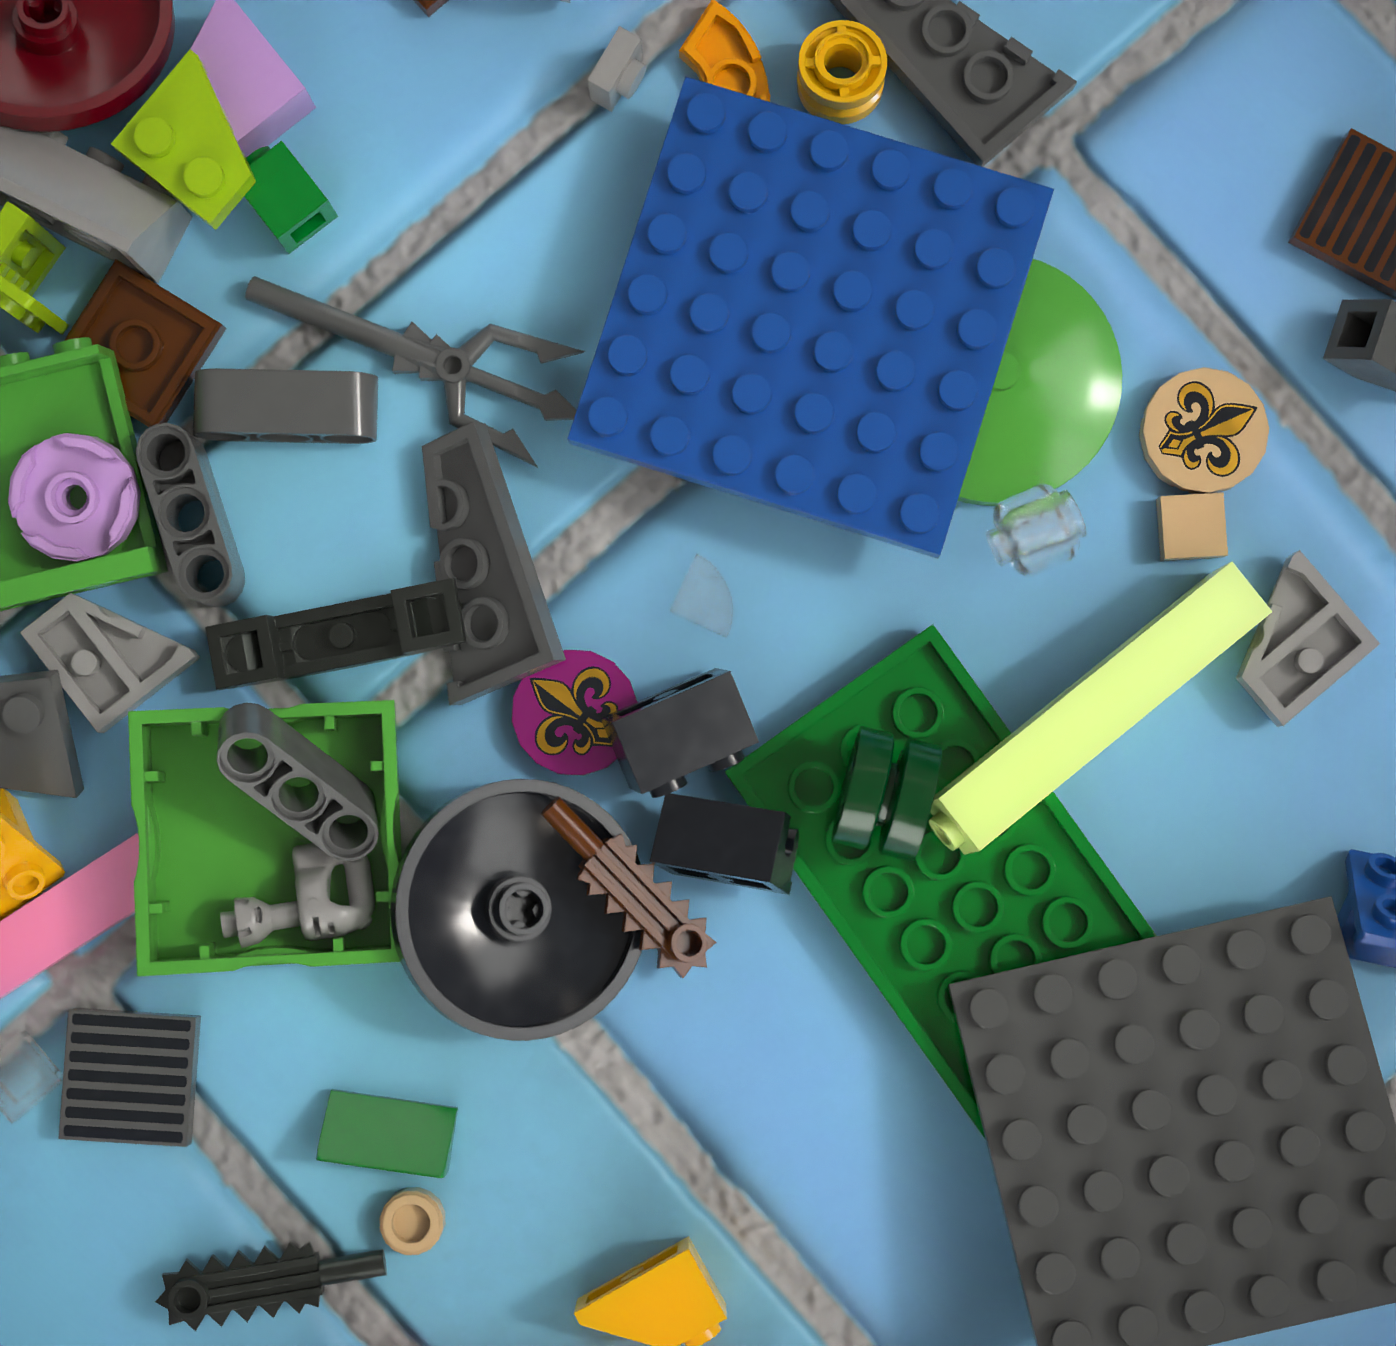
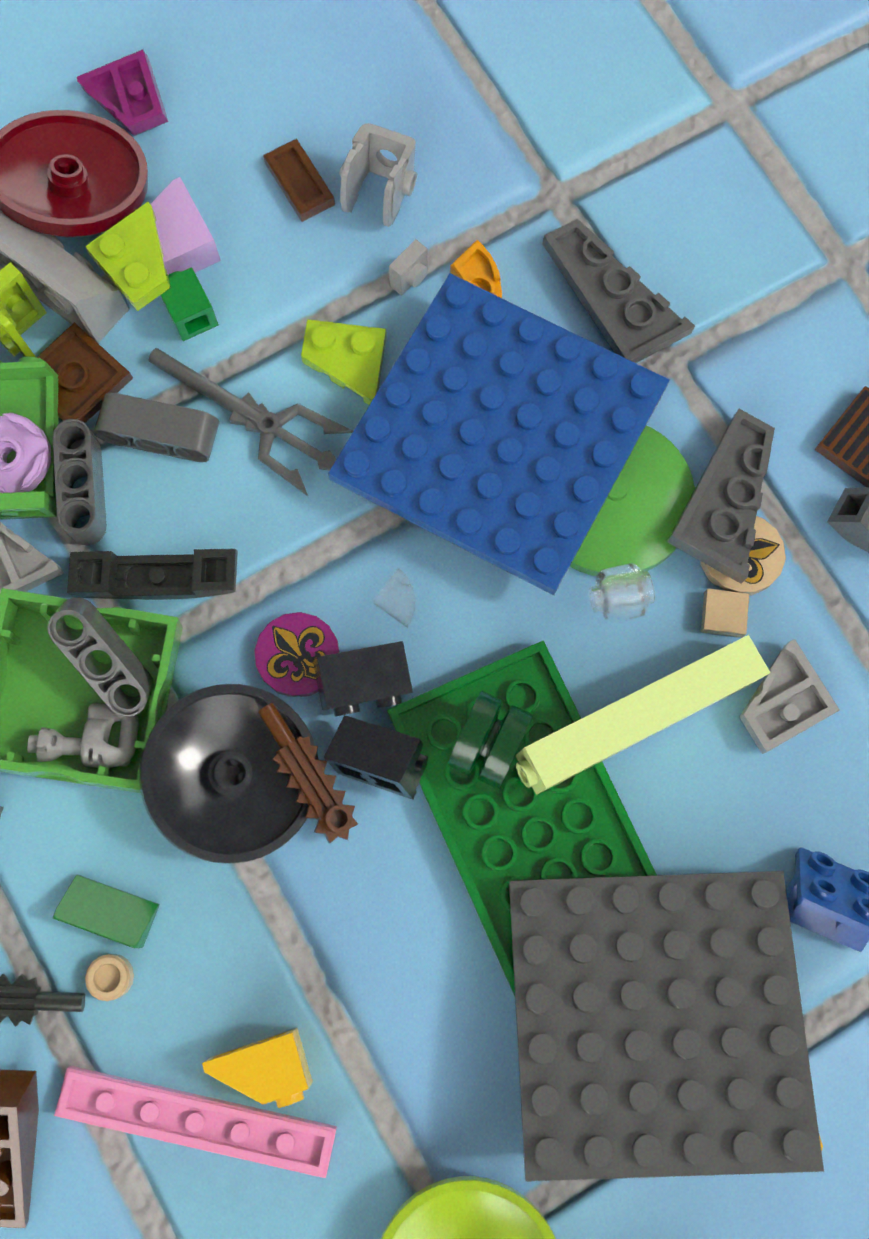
camera: 10 degrees right, 10 degrees down
(494, 573) = (264, 557): dark grey wing -> none
(548, 229) = (347, 354): none -> lime wing
(848, 46) = (549, 291): yellow wheel -> none
(1164, 370) = (724, 504): none -> dark grey wing

